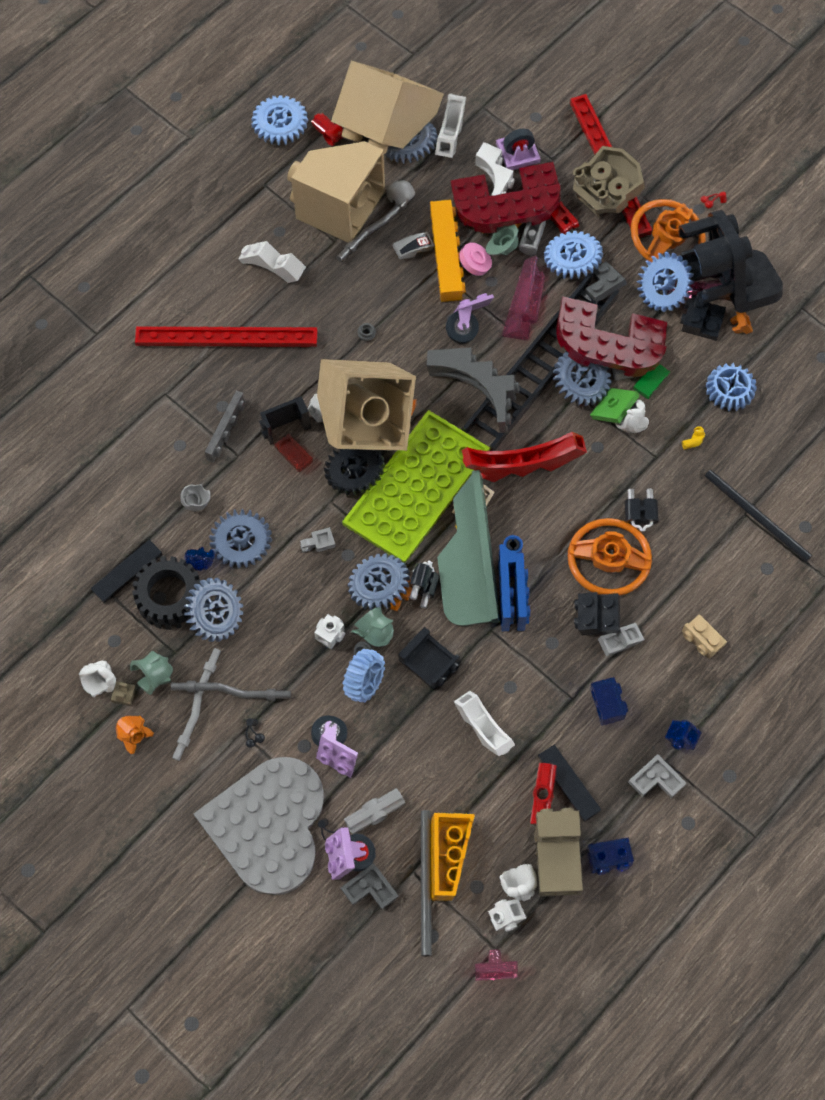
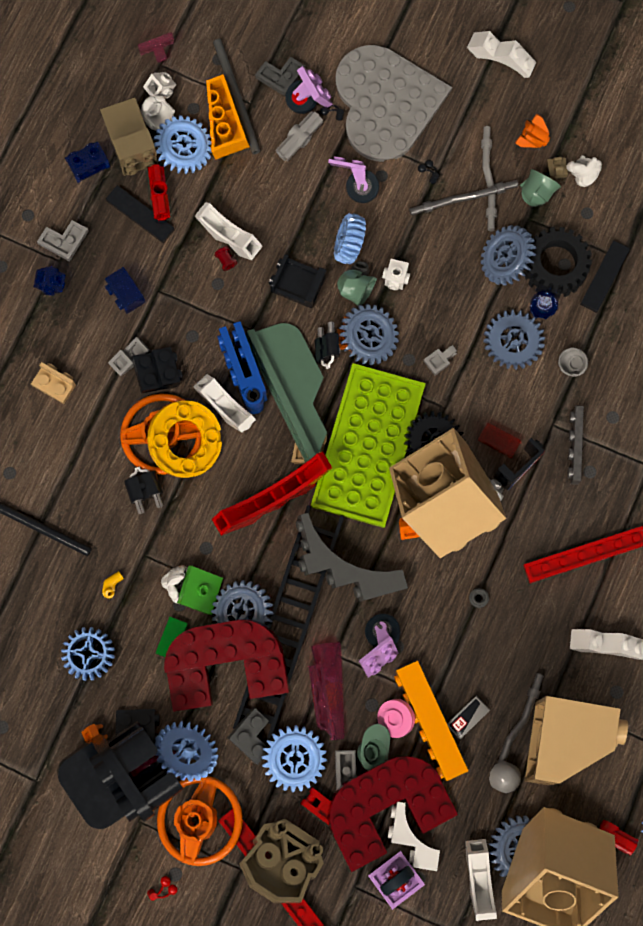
camera: 160 degrees right, 10 degrees up
(126, 831) = (510, 53): none -> white arch
(495, 704) = (225, 258): none -> dark red bush
(509, 853) = (183, 144): none -> light blue gear
(538, 553) = (224, 404): none -> white arch
(573, 520) = (210, 441): none -> yellow plate

